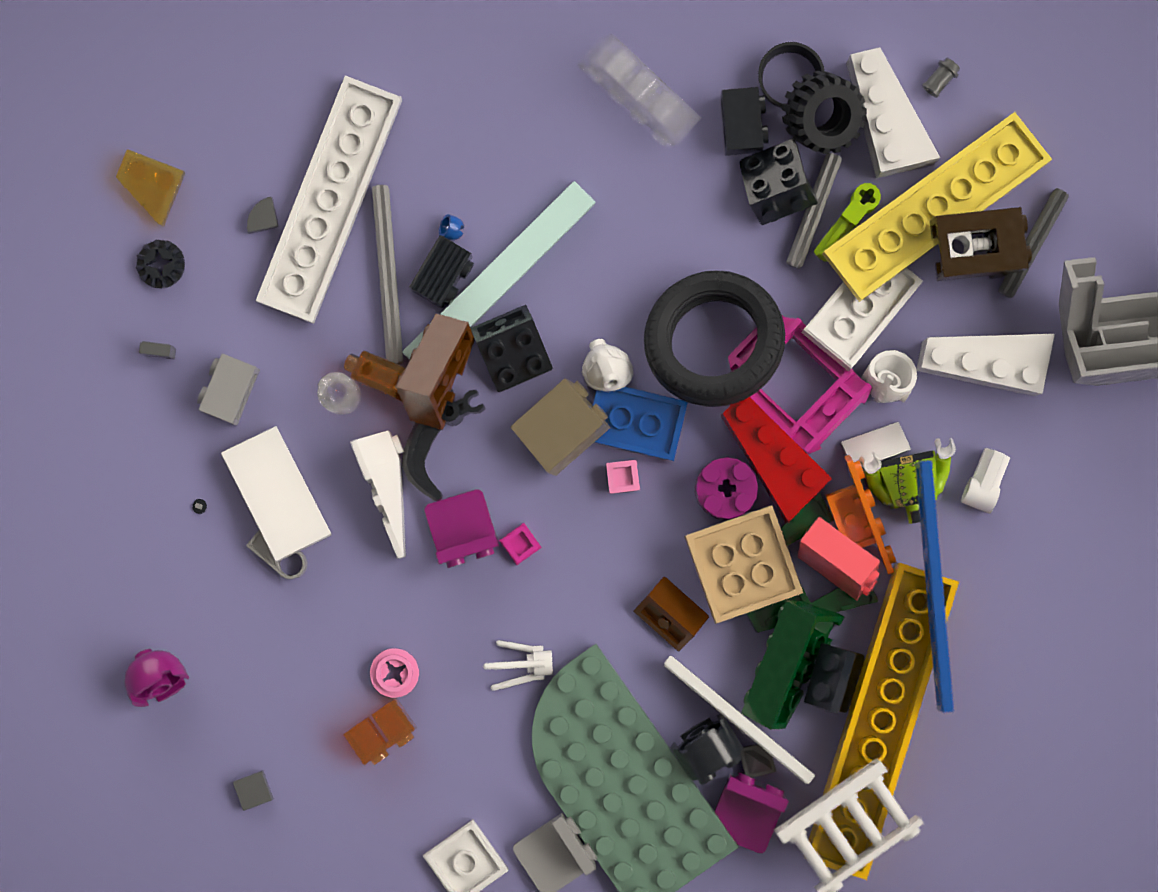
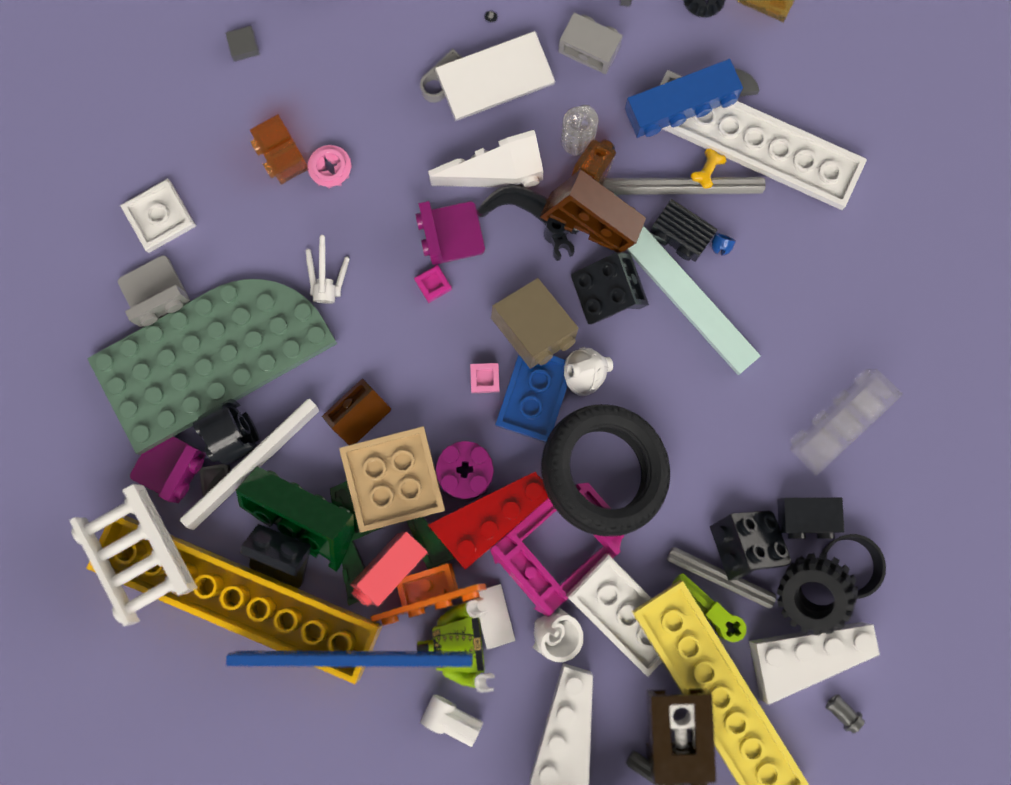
camera: 100 degrees right, 5 degrees down
(293, 280) = (683, 98): none -> blue brick
(380, 253) = (704, 176): none -> yellow piece

